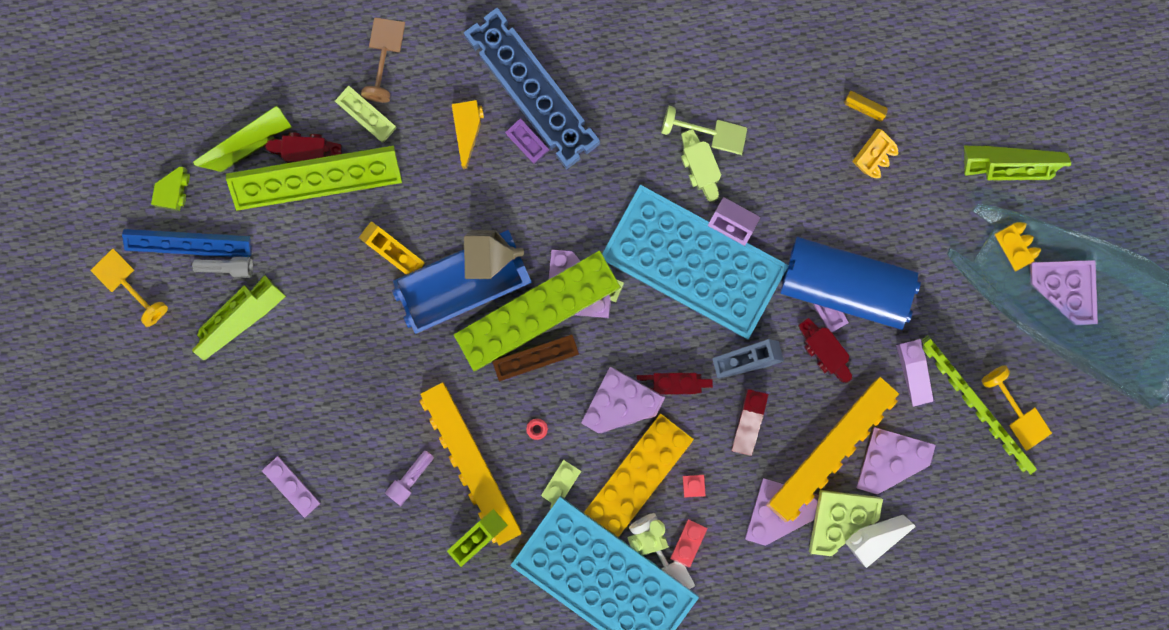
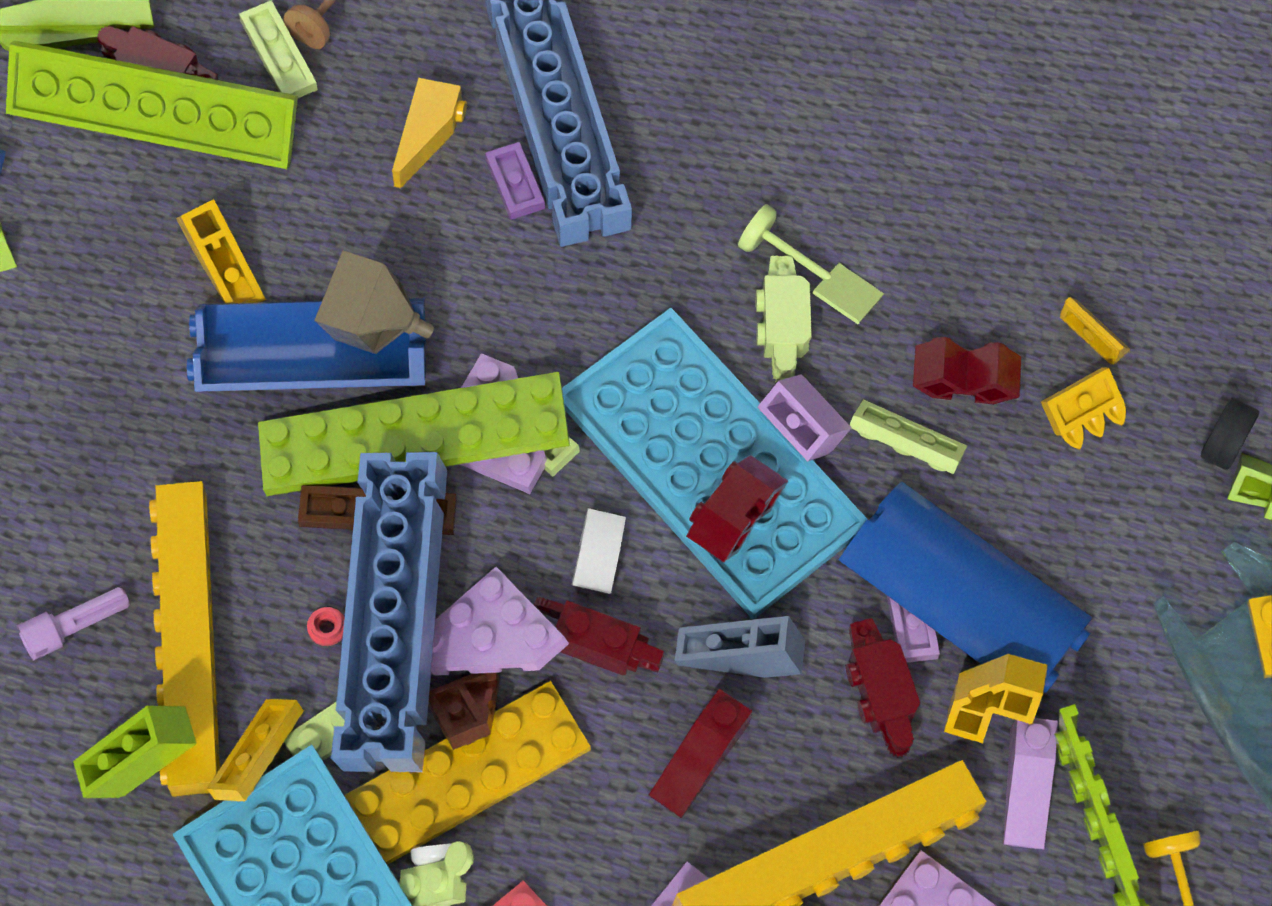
camera: 15 degrees right, 20 degrees down
(532, 509) = (255, 750): none -> yellow plate
(569, 415) = (390, 613): none -> medium blue brick
(625, 446) = (465, 707): none -> copper wing
(657, 335) = (599, 551): none -> white slope
(694, 486) = (557, 828): coral plate -> none
(720, 290) = (742, 498): none -> dark red brick
(790, 208) = (907, 437): none -> yellowish green plate
(799, 162) = (949, 369): none -> dark red brick
(884, 335) = (1002, 687): none -> yellow brick
(956, 142) = (1229, 433): none -> black tyre

